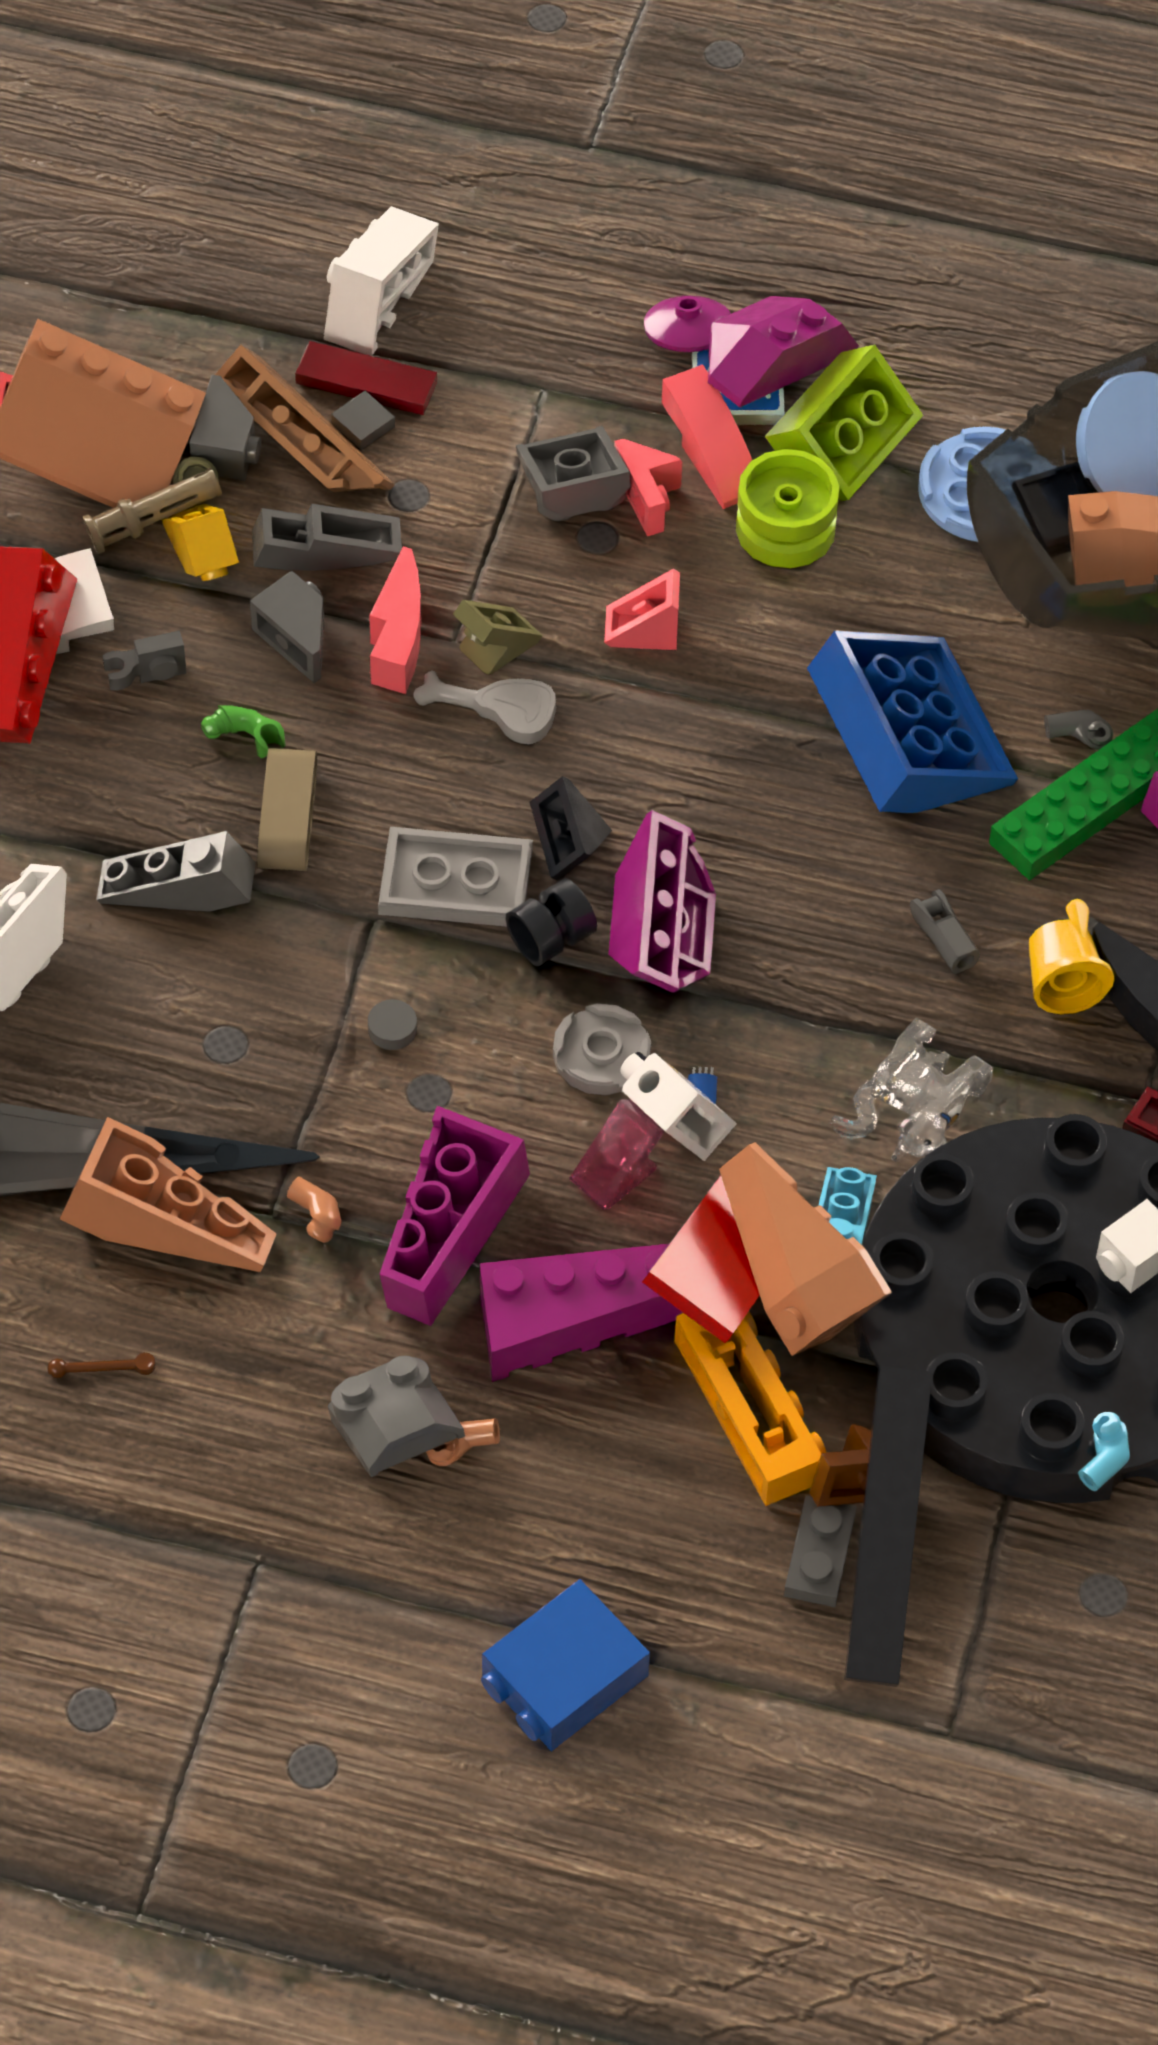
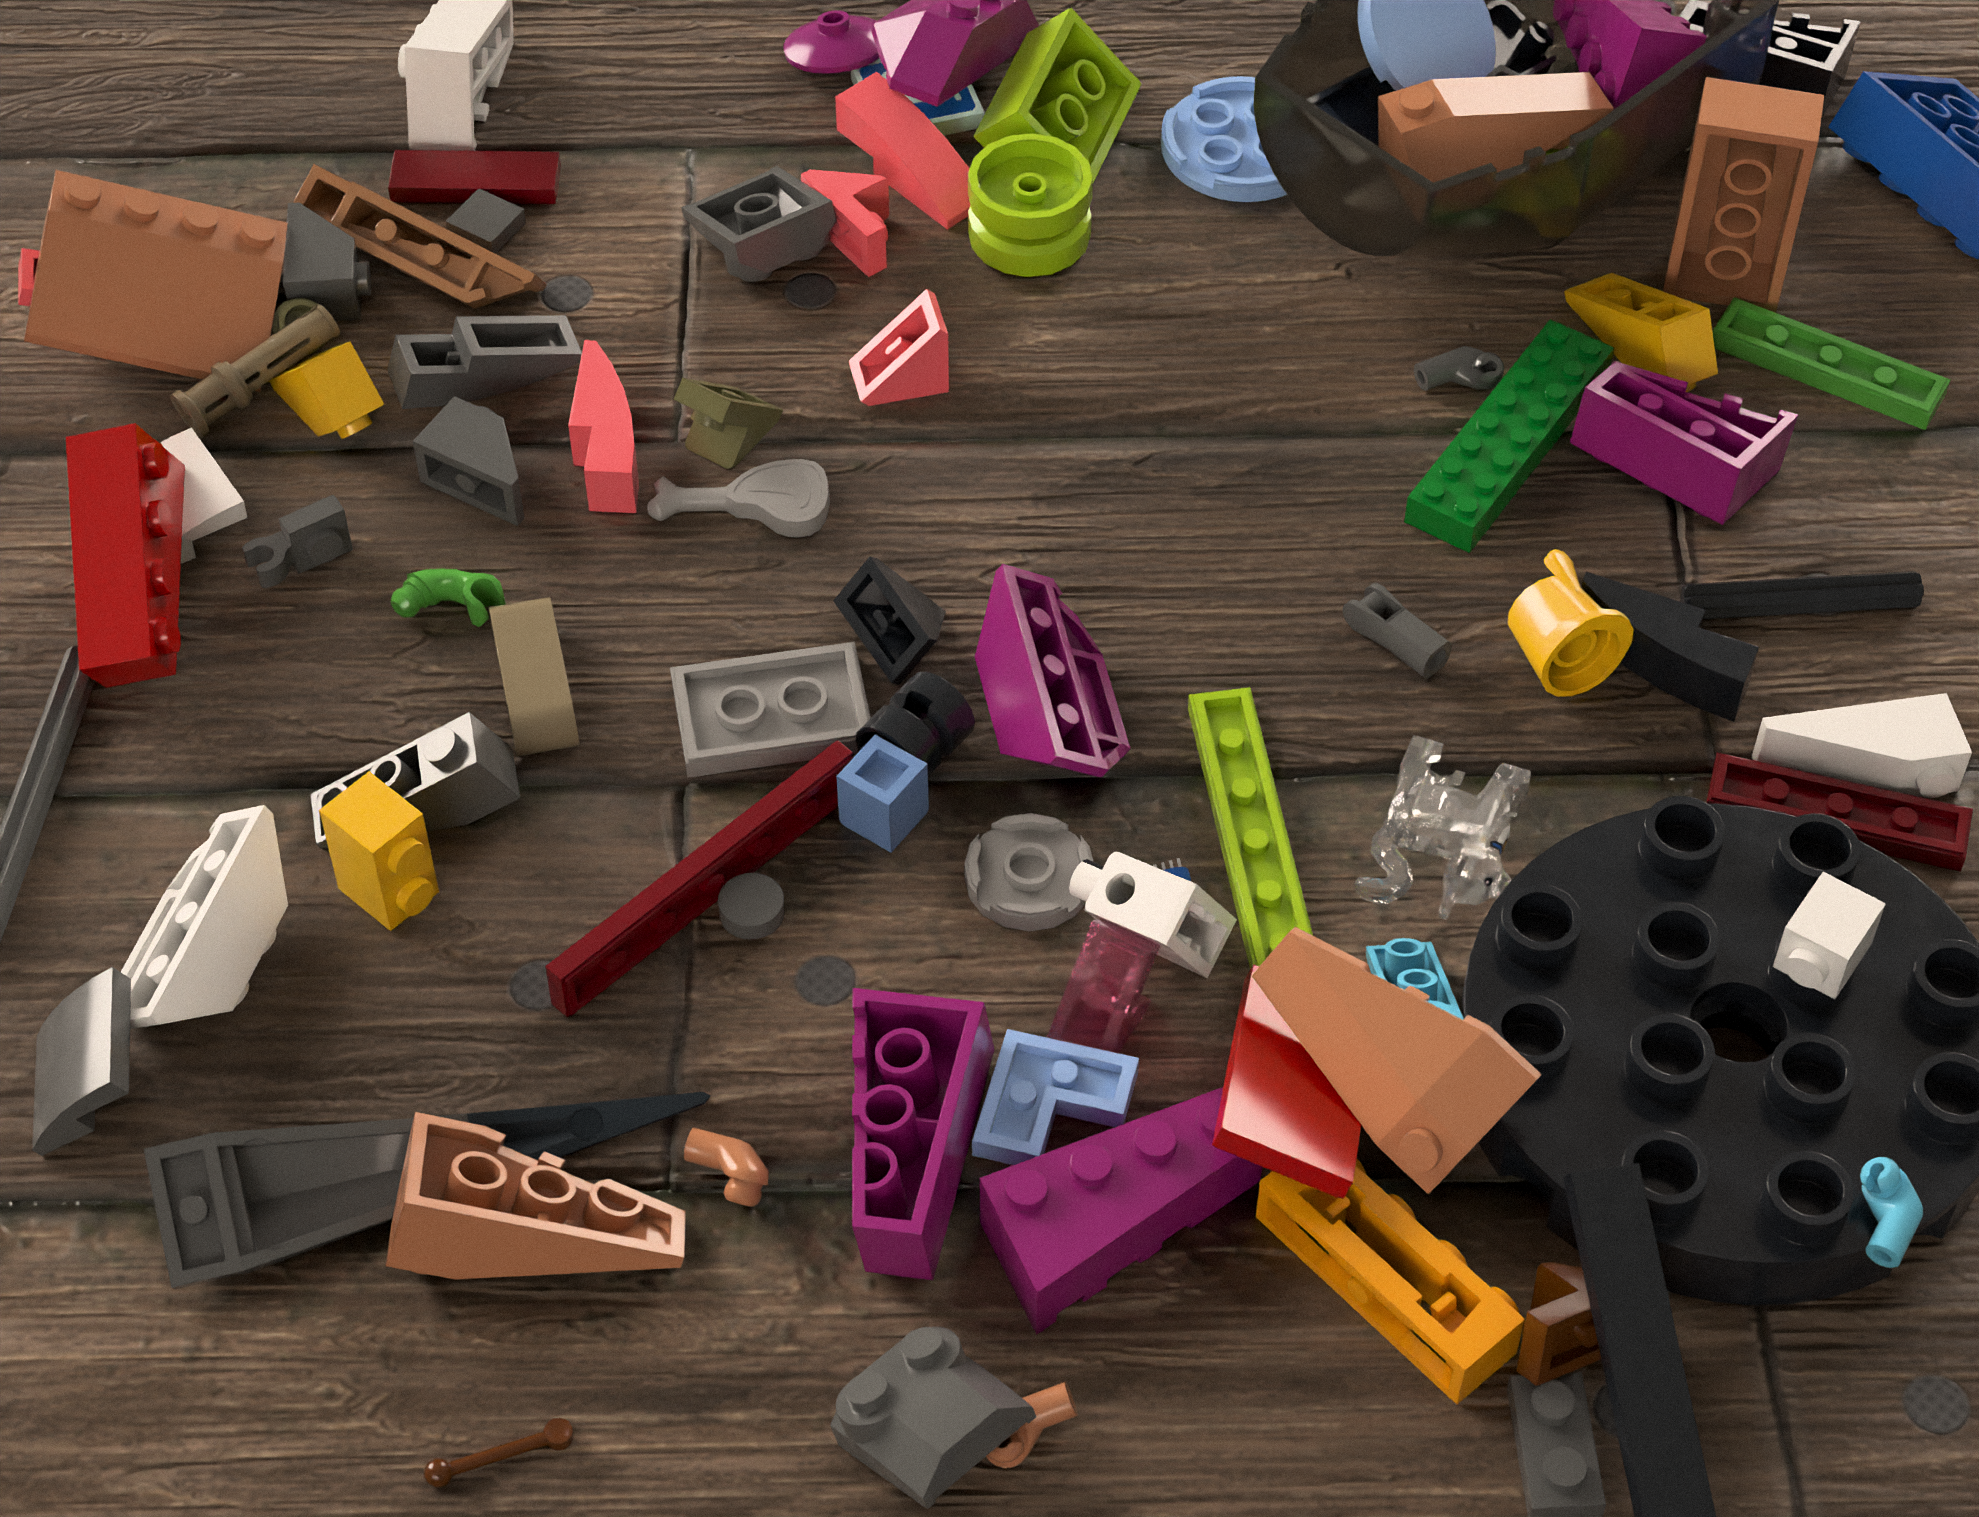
camera: 15 degrees left, 5 degrees down
(136, 919) = (380, 851): none -> yellow brick
(358, 995) = (695, 882): none -> dark red tile
(512, 964) = (883, 793): none -> medium blue panel
(554, 1205) = (1043, 1079): none -> light blue plate
(778, 1050) = (1248, 820): none -> lime tile
(909, 720) = (1258, 405): blue slope -> none

